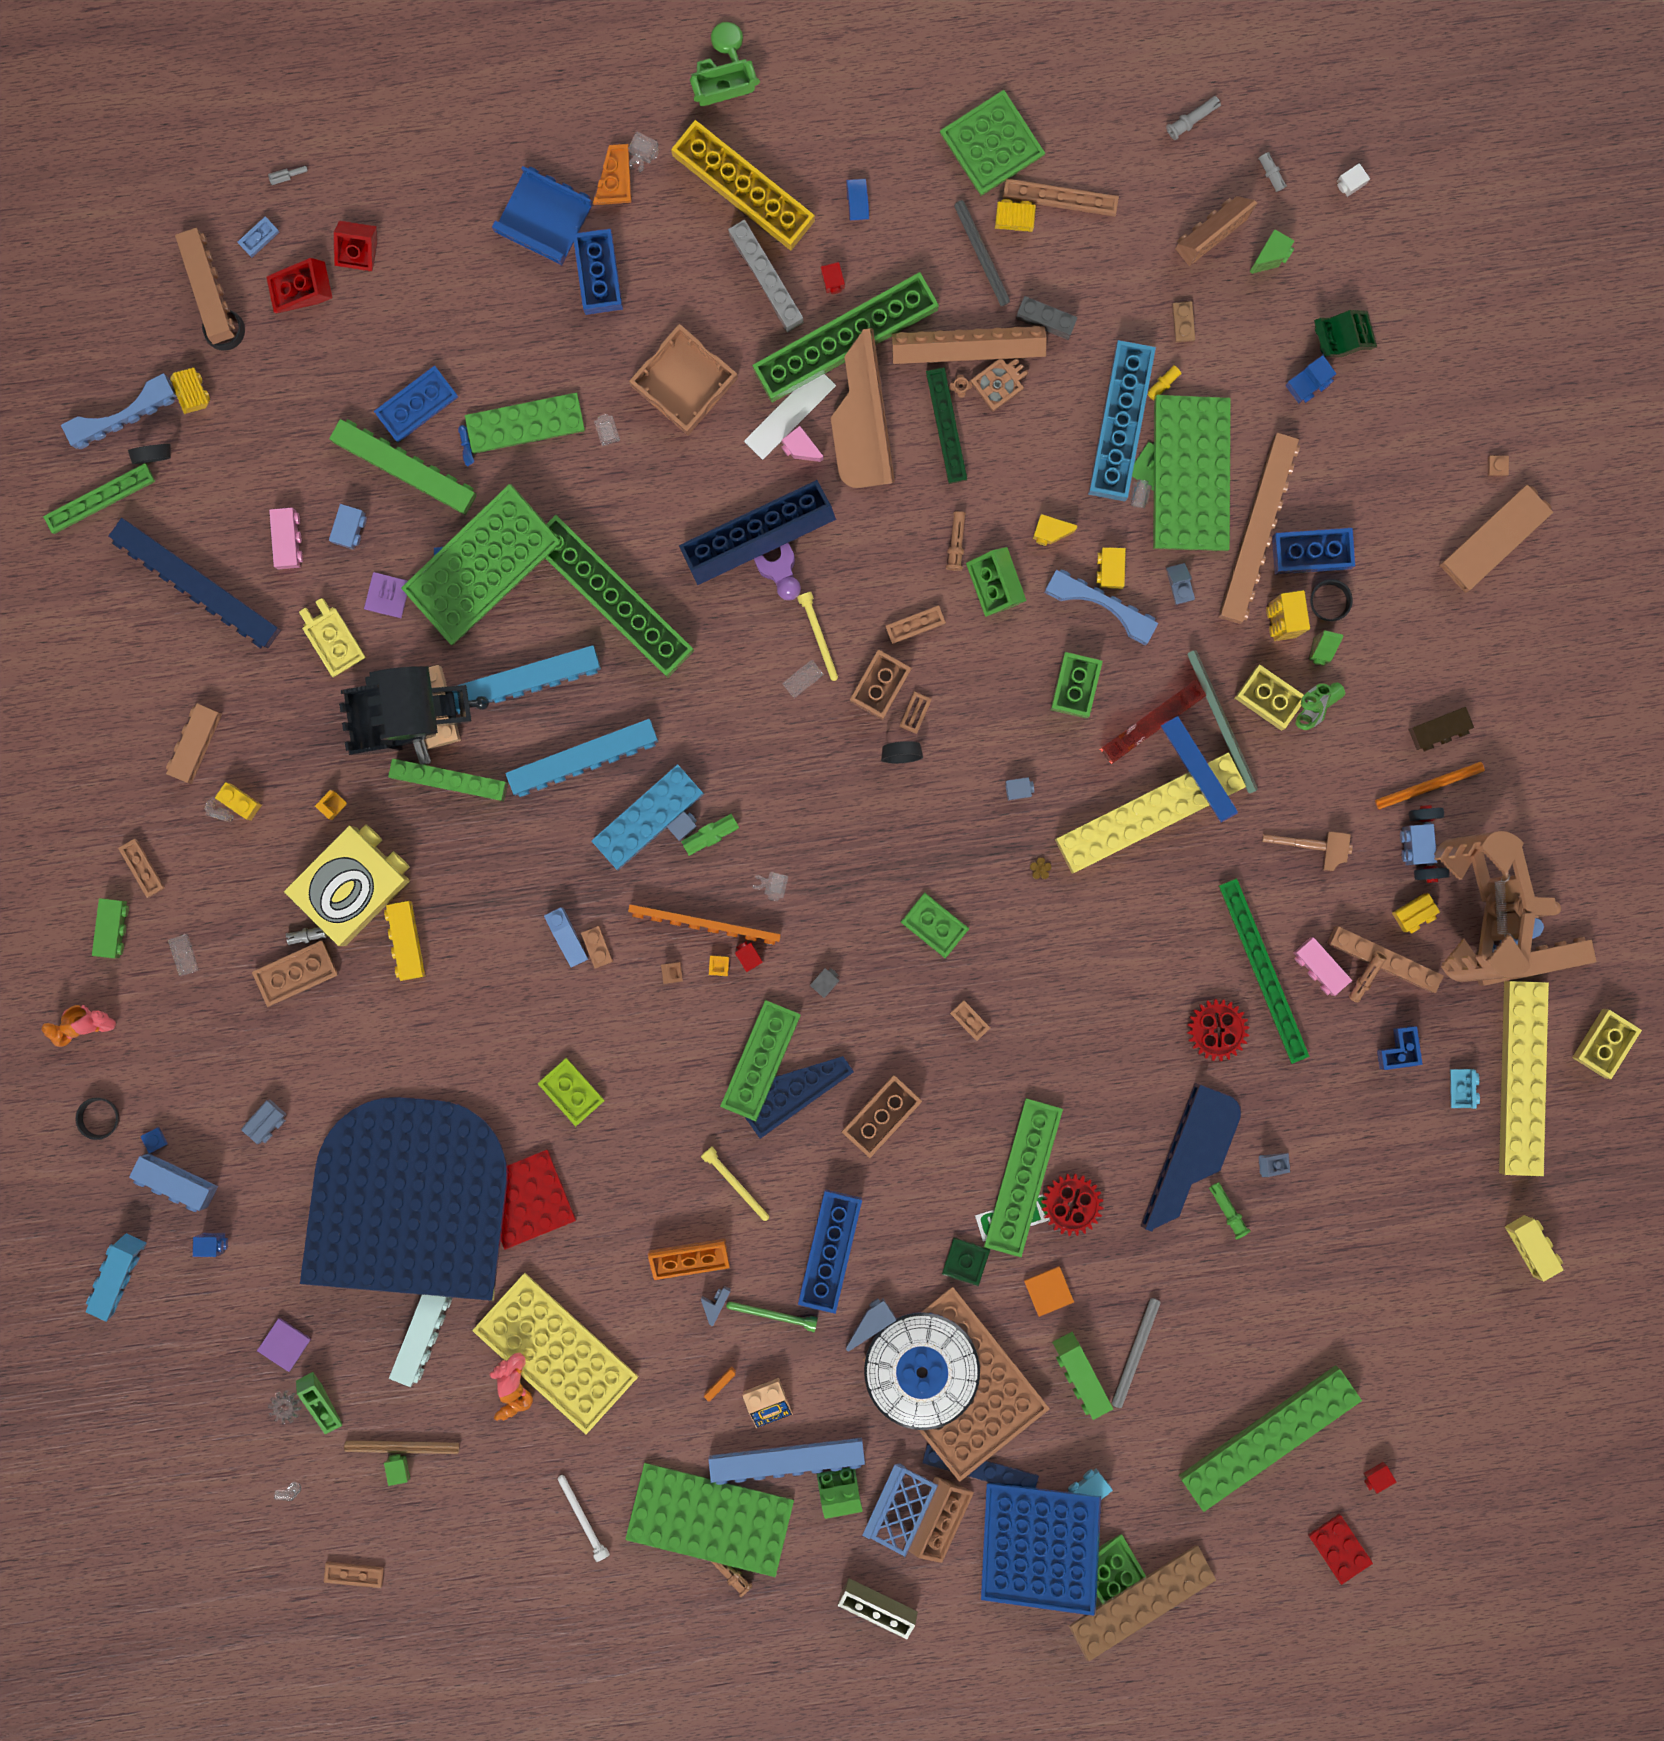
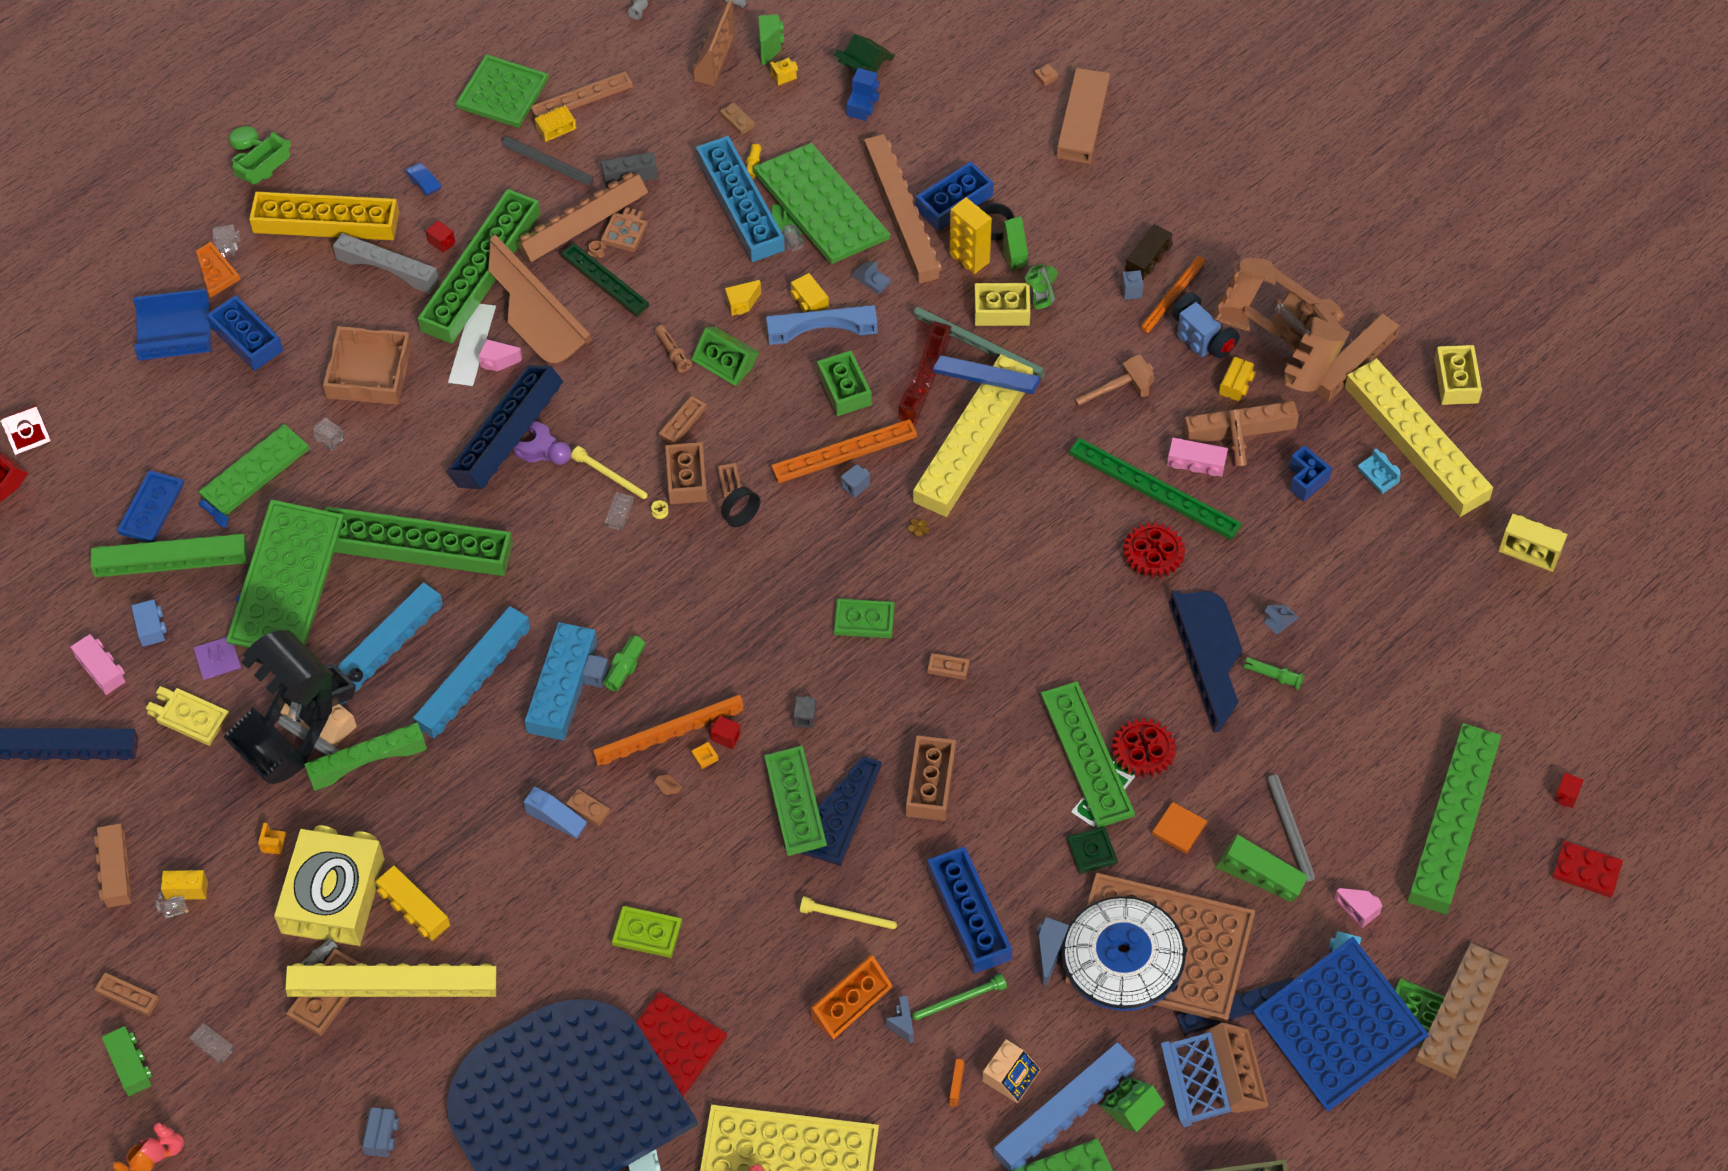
camera: 35 degrees left, 30 degrees down
(345, 1002) = (391, 980): none -> light yellow brick
(775, 885) = (707, 665): clear brick -> none
(835, 695) = (659, 515): none -> light yellow bush
(1030, 751) = (844, 451): none -> orange plate
(1136, 1457) = (1359, 905): none -> bright pink slope
(1256, 300) = (783, 71): none -> yellow brick
(1399, 754) = (1132, 285): none -> sand blue brick

